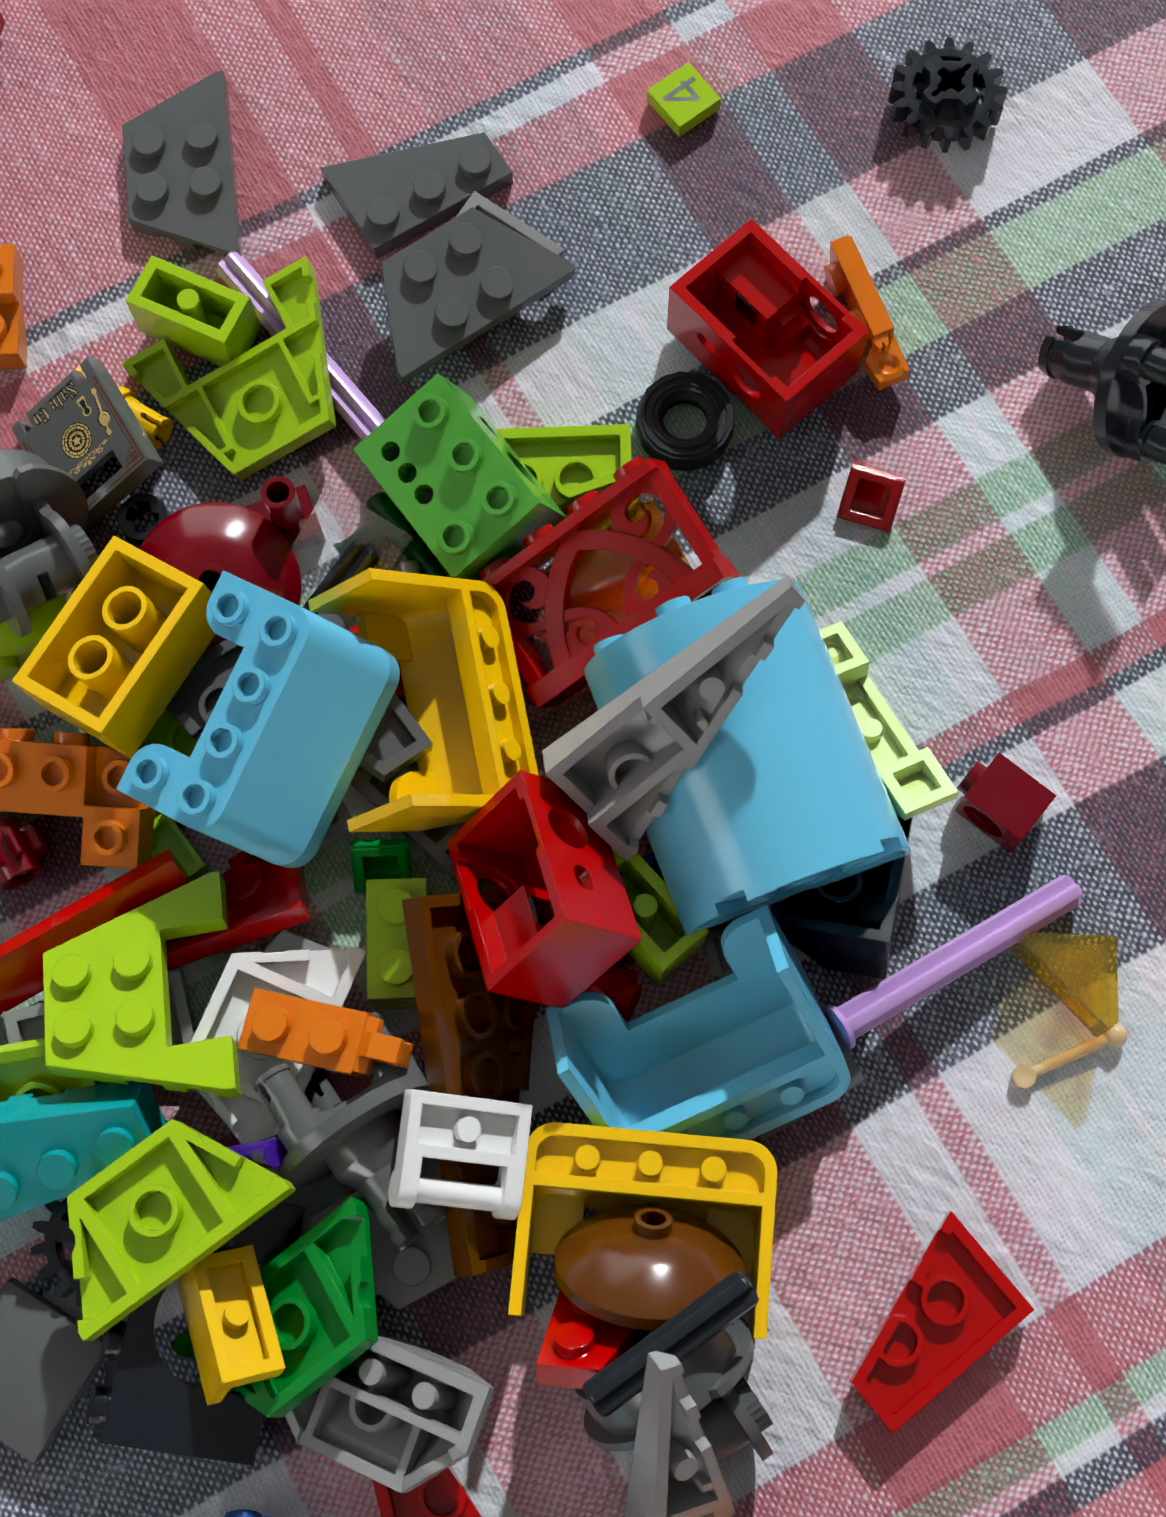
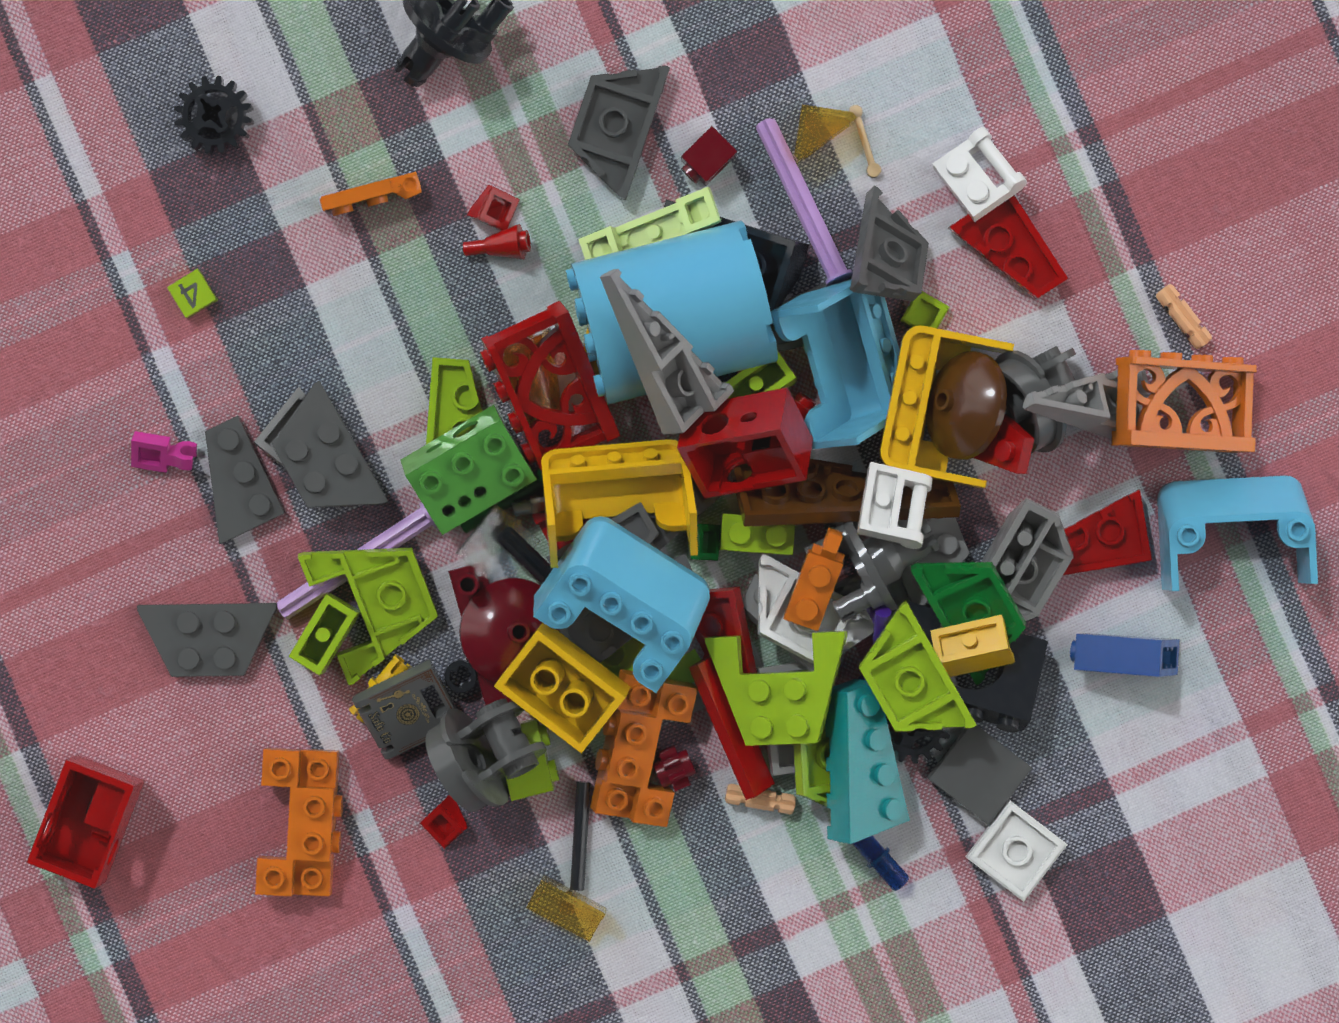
camera: 90 degrees left, 15 degrees up
(443, 71) = (156, 453): none -> dark pink plate
(677, 1336) = (1013, 396): black axle -> none
(685, 389) = (408, 316): black tyre -> none
(756, 331) = (380, 261): red piece -> none
(801, 1188) = (924, 311): none -> lime tile
(820, 519) = (506, 243): none -> red cone
(889, 1106) = (888, 253): none -> dark grey wing
(1032, 1239) = (970, 182): none -> white plate
(1034, 659) = (617, 123): none -> dark grey wing

